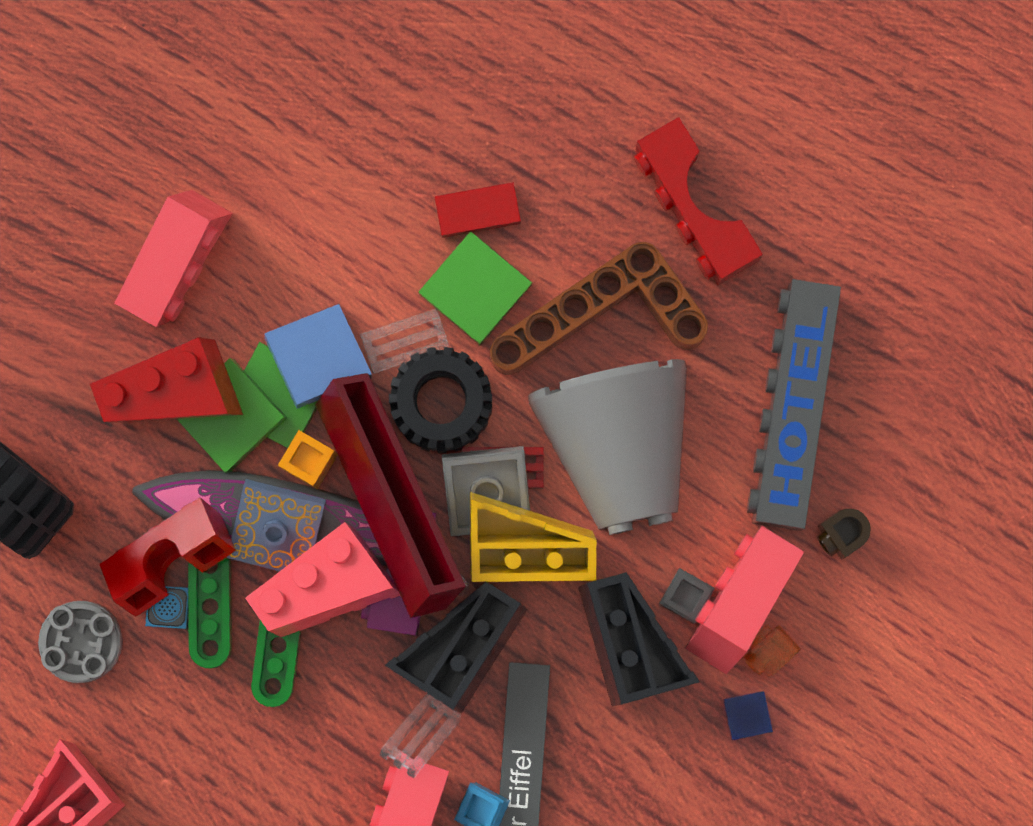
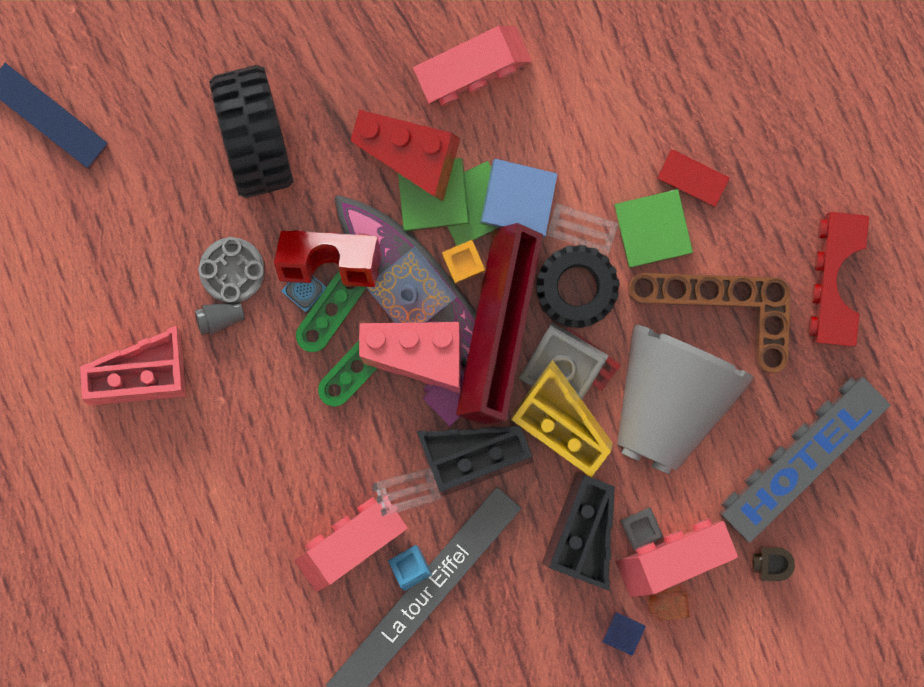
camera: 35 degrees right, 5 degrees up
(99, 700) = (217, 317): none -> dark grey cone

